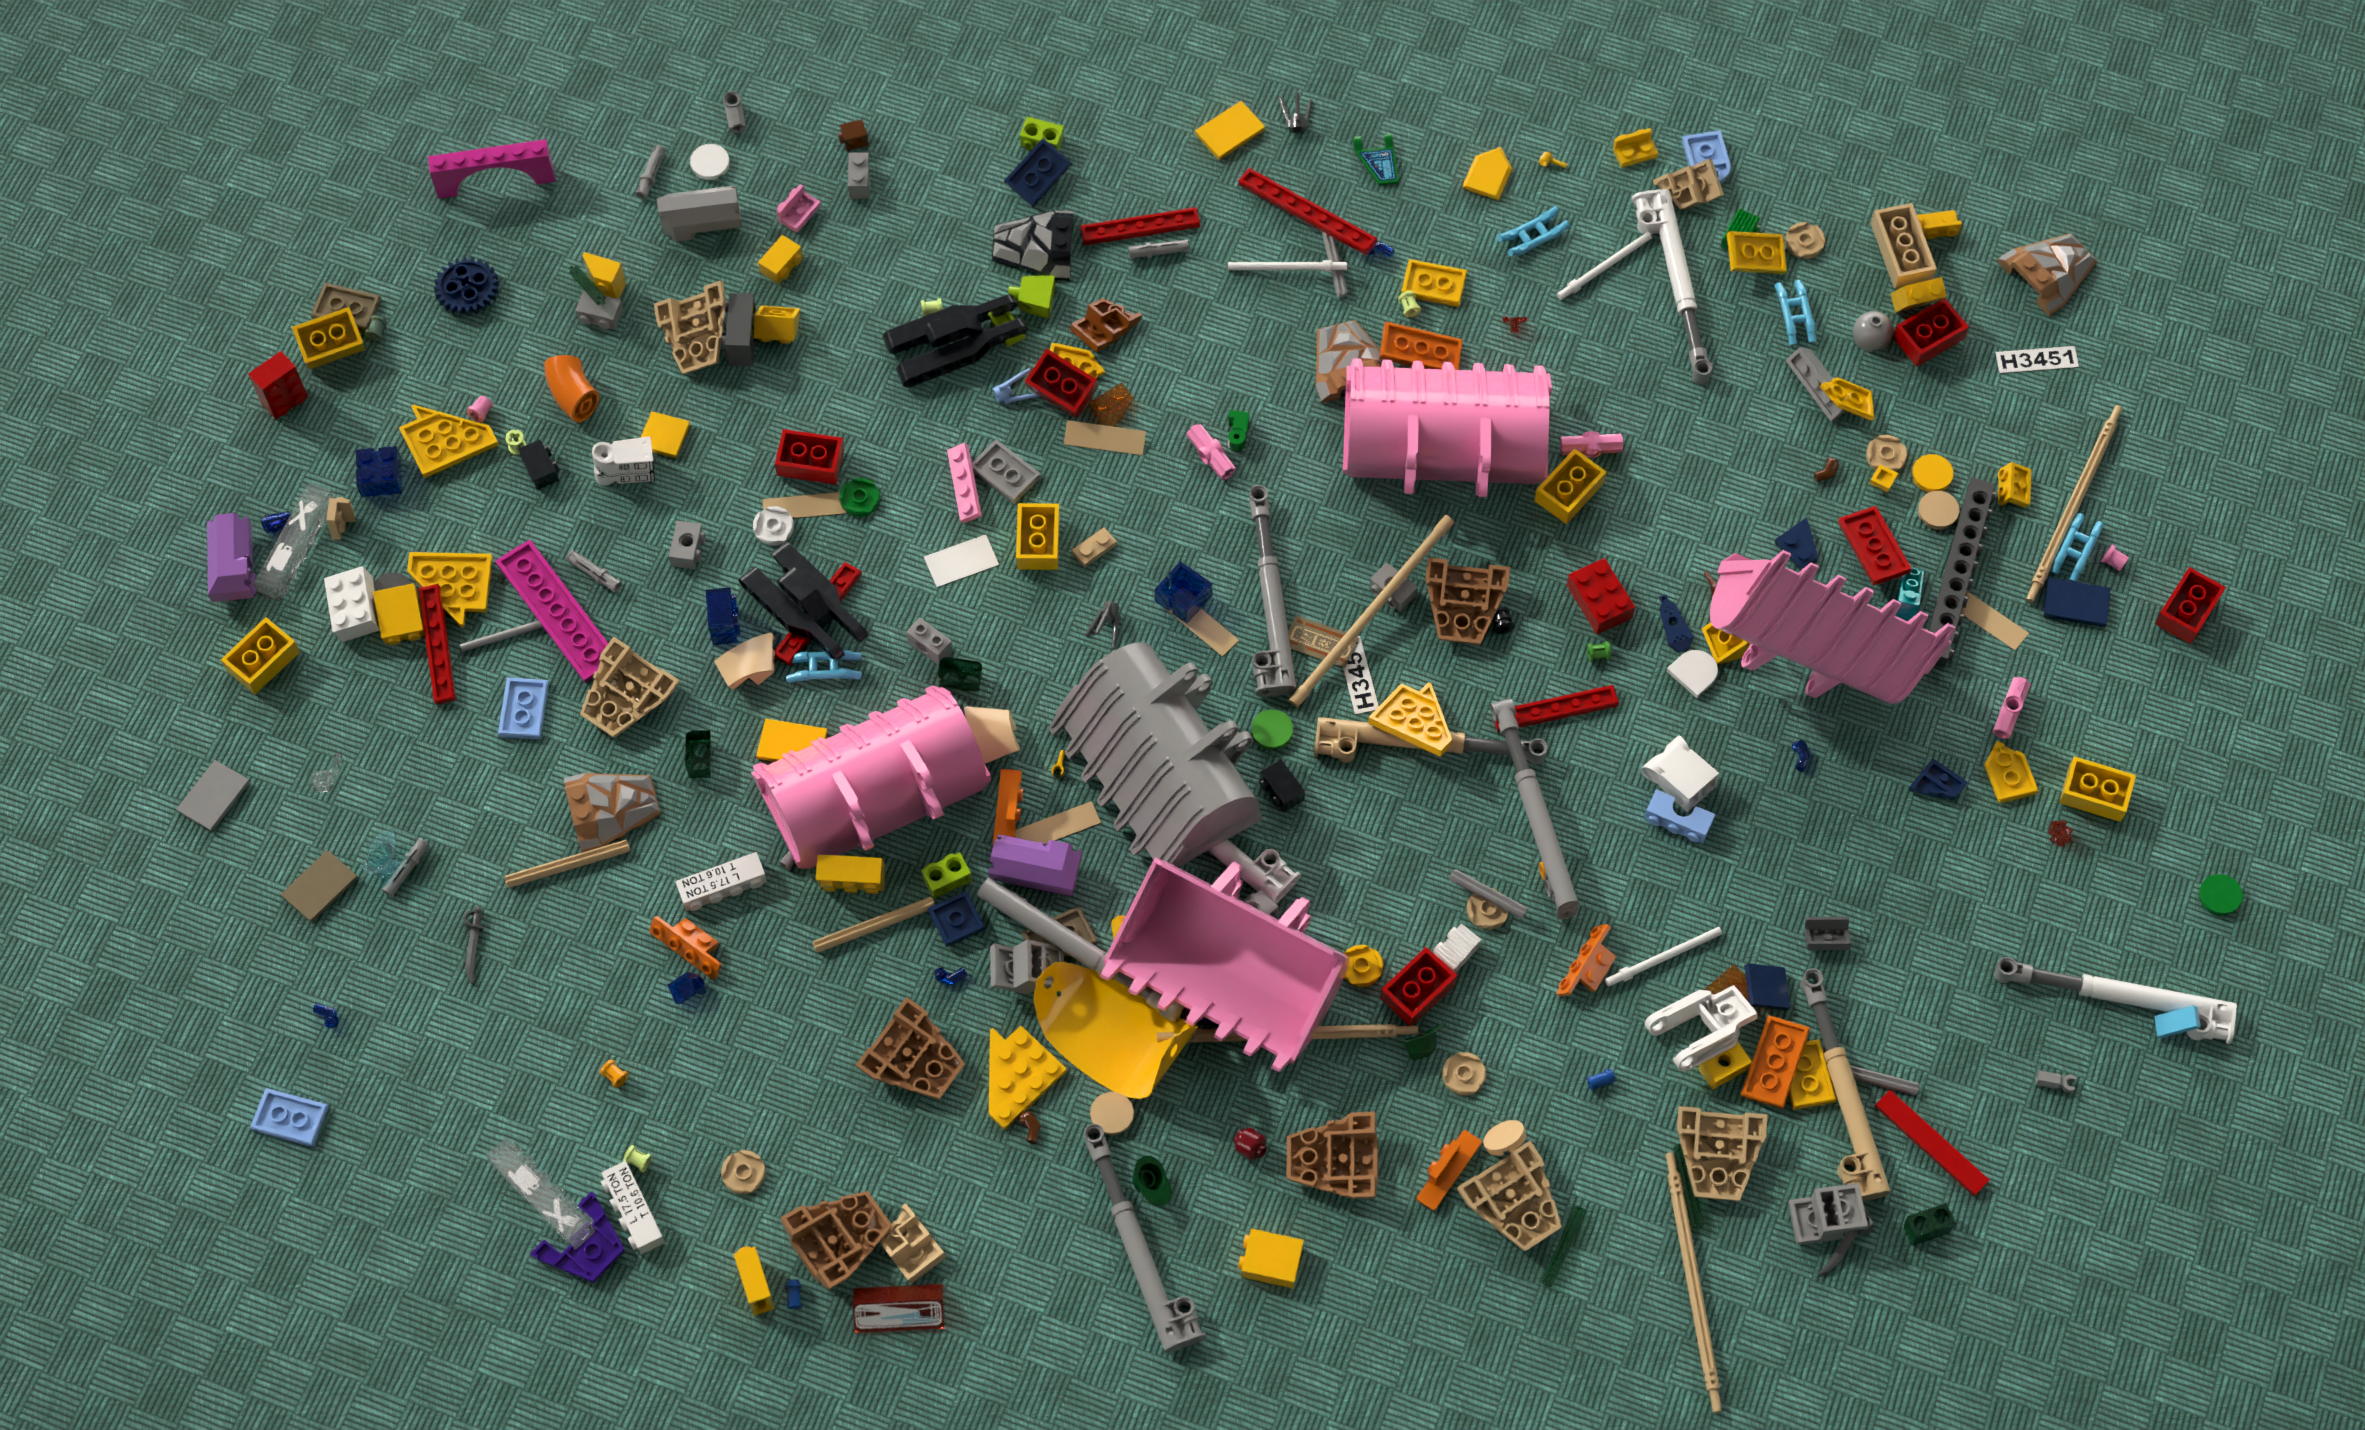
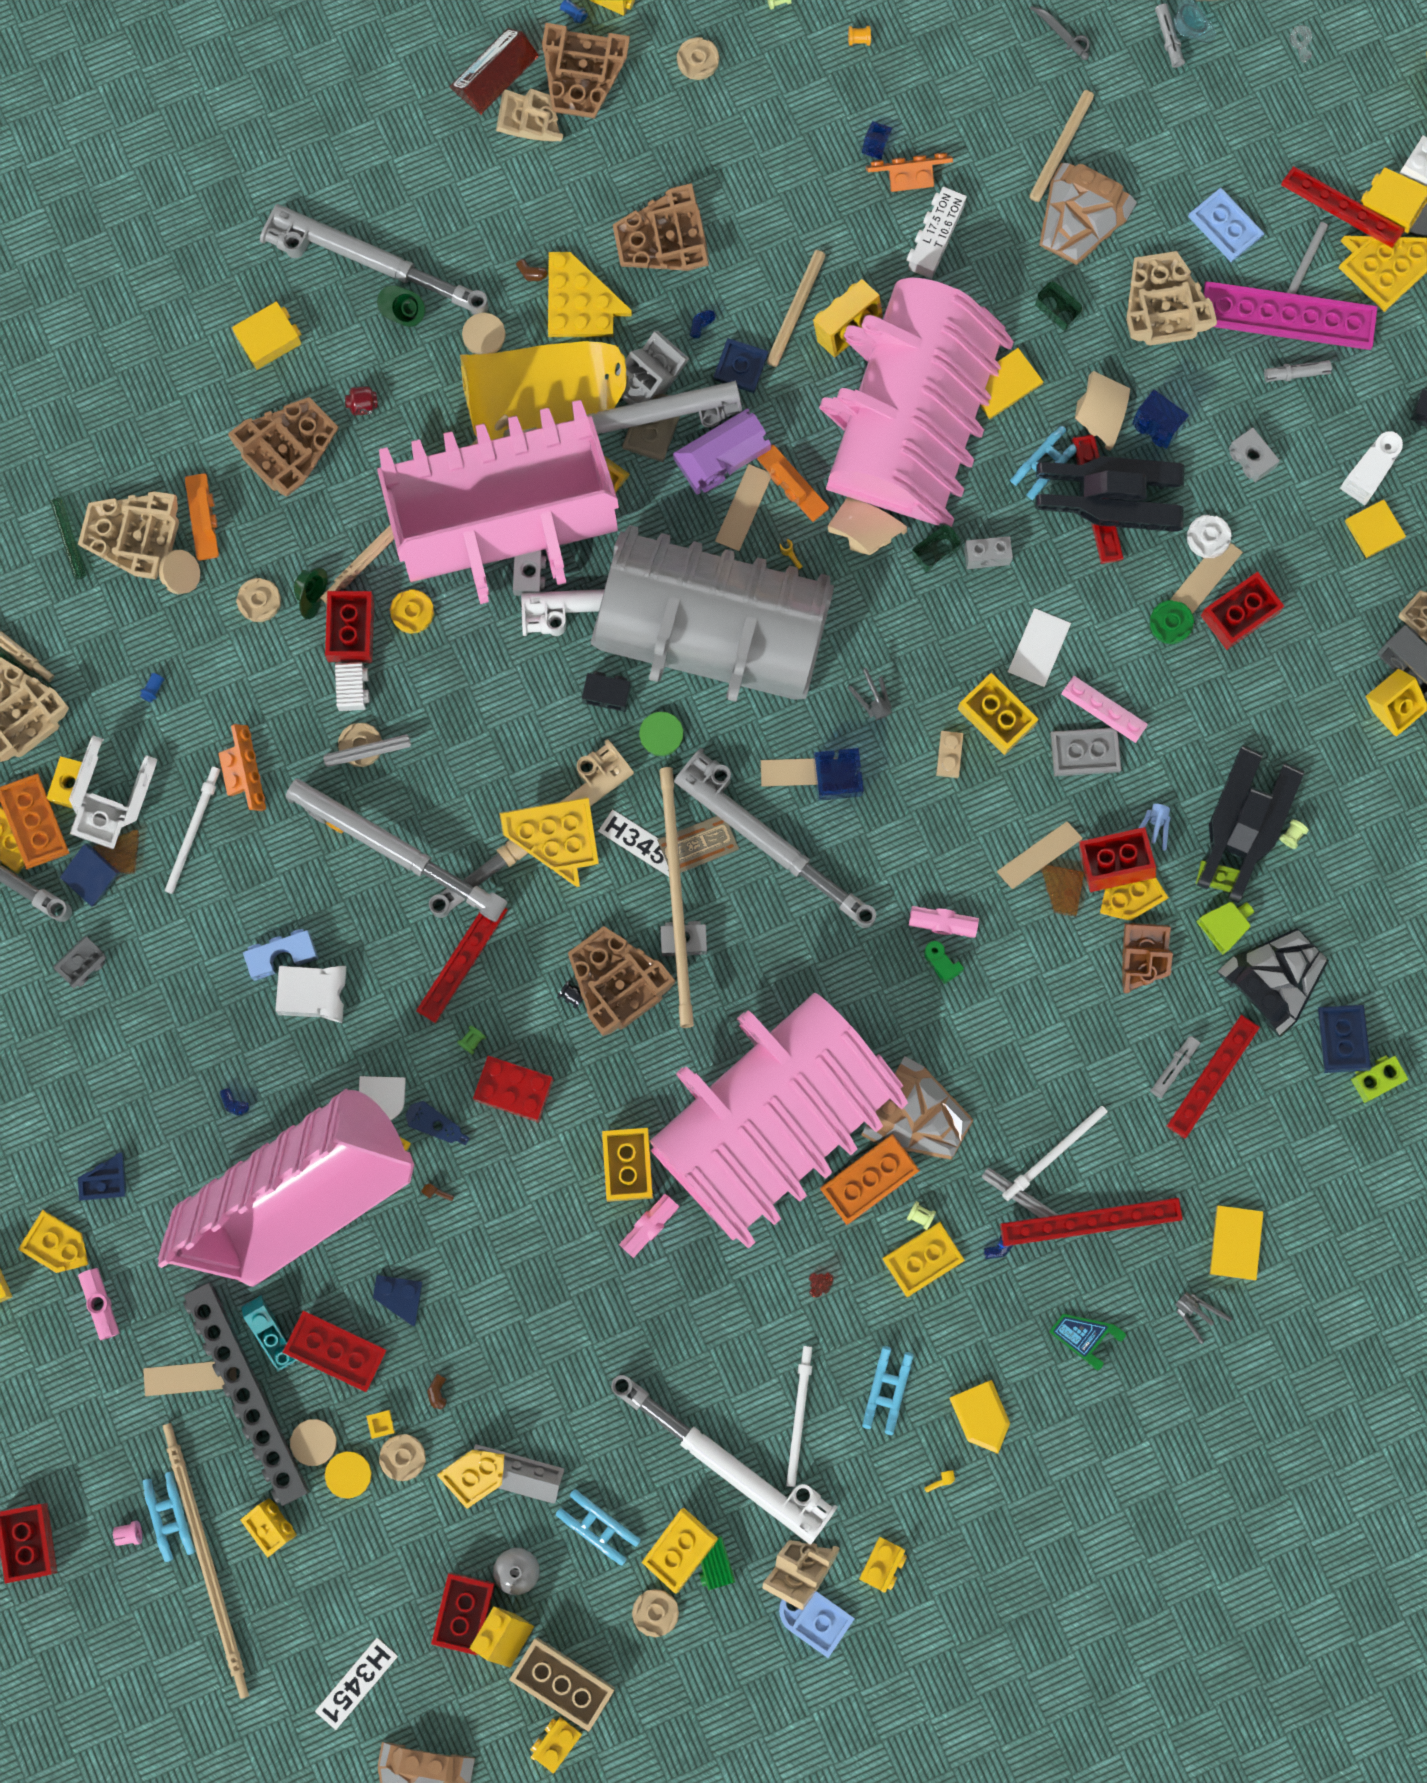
camera: 135 degrees right, 15 degrees up
(949, 880) = (778, 388): lime brick -> none
(2076, 602) = (127, 1462): dark blue tile -> none

